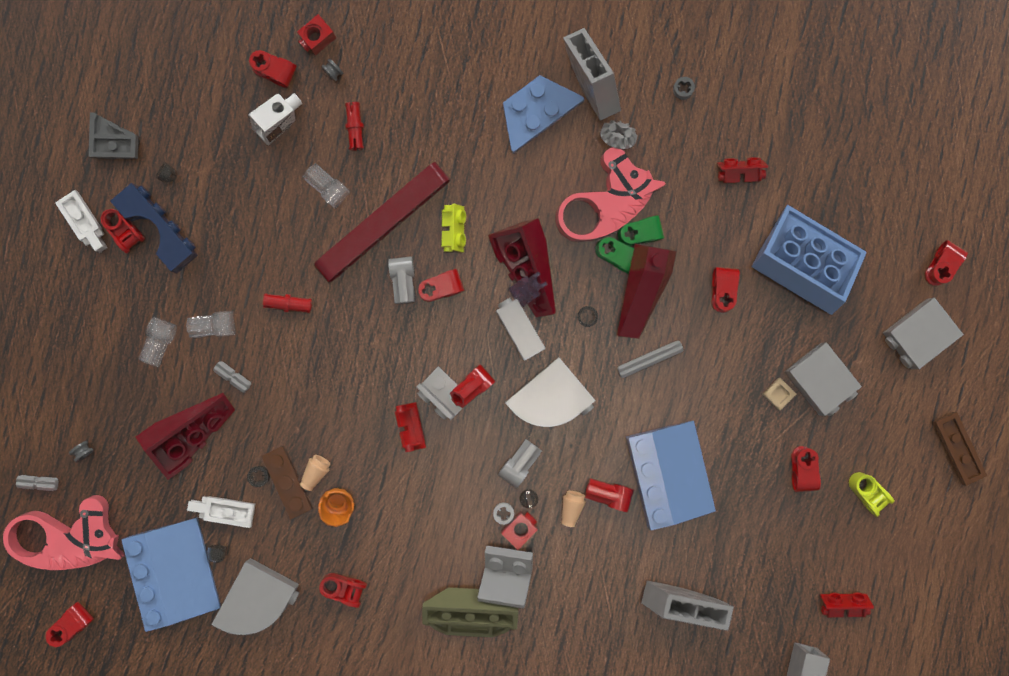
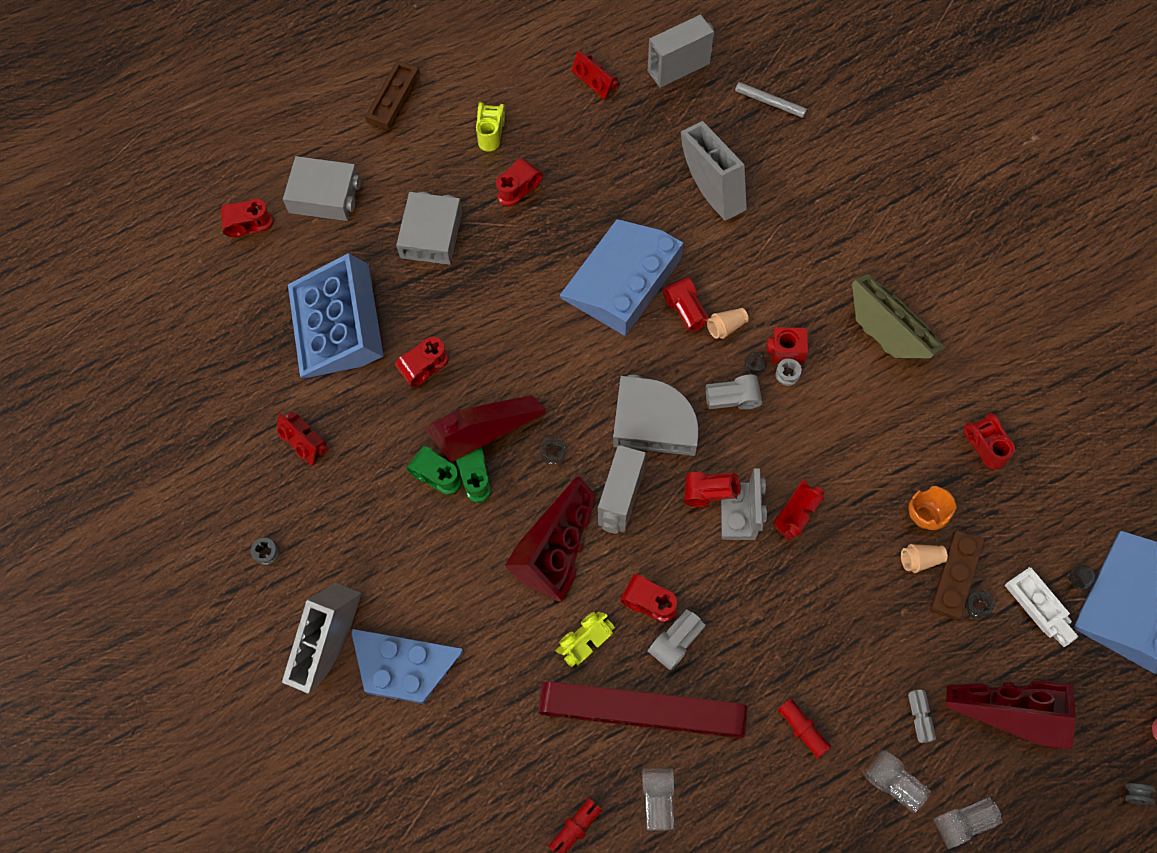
camera: 130 degrees left, 20 degrees down
(255, 600) = (1081, 503): light grey brick -> none
(506, 577) = (839, 317): light grey bracket -> none
(526, 289) = (581, 518): plate -> none
(617, 140) = (367, 561): light grey gear -> none
(626, 196) = (431, 511): coral animal -> none
(650, 359) = (541, 370): light grey axle -> none
(779, 393) = (473, 251): tan tile -> none

